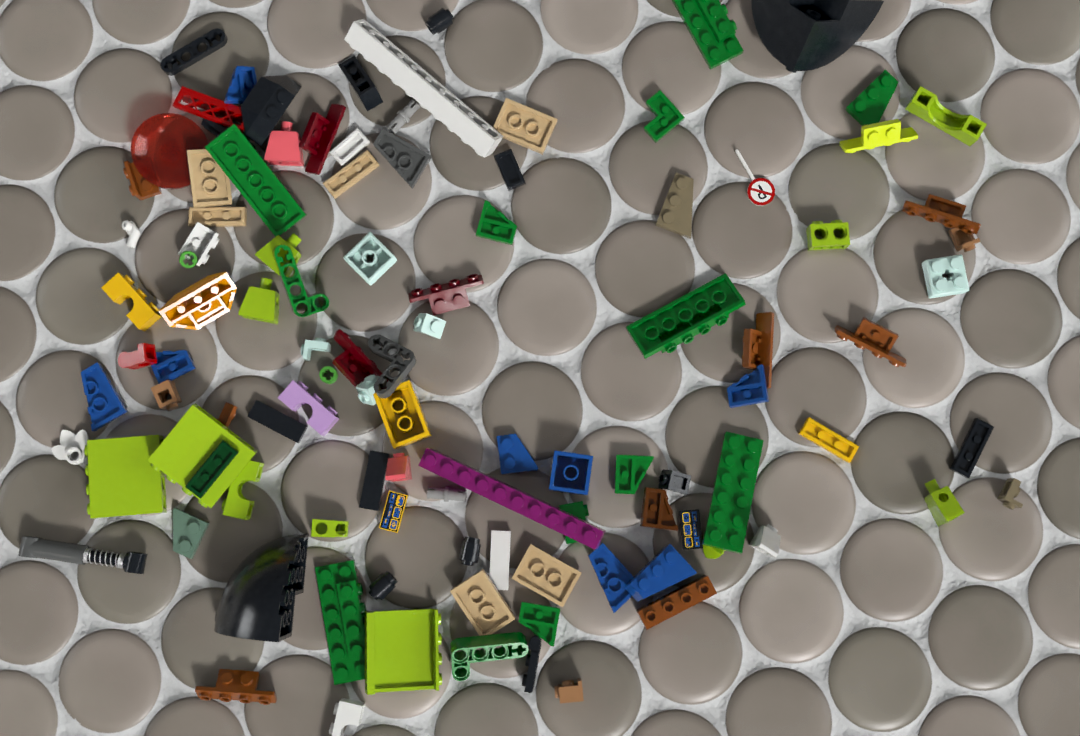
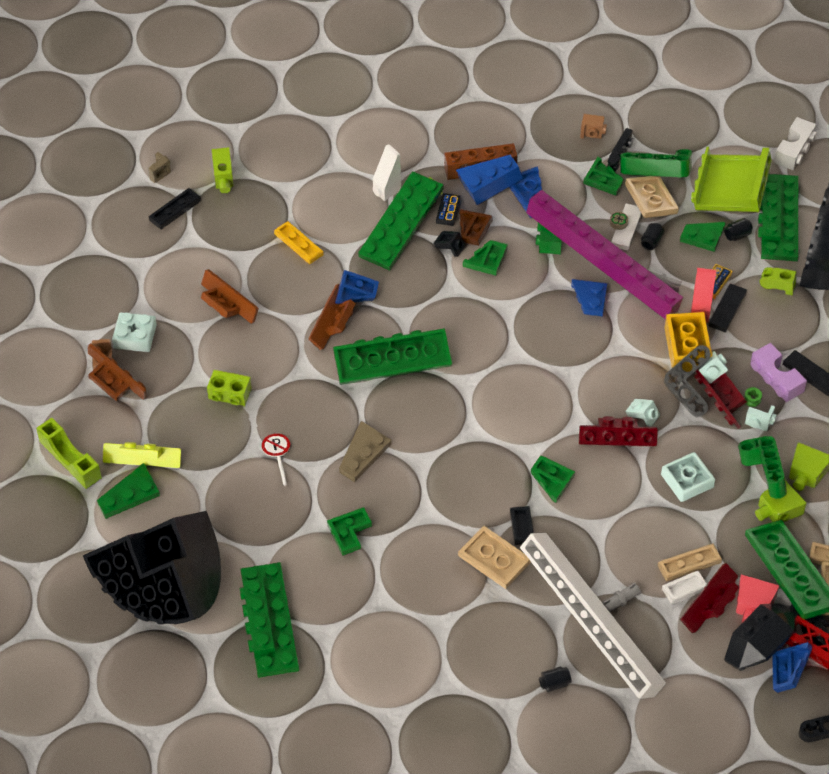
camera: 165 degrees left, 30 degrees down
(361, 83) = (658, 641): black slope -> none
(402, 156) = (629, 560): dark grey wing -> none
(418, 572) = (703, 235): none -> green wing
(508, 559) = (619, 220): none -> dark tan tile
(546, 575) = (588, 204): tan plate -> none
(571, 472) = (543, 265): blue brick -> none

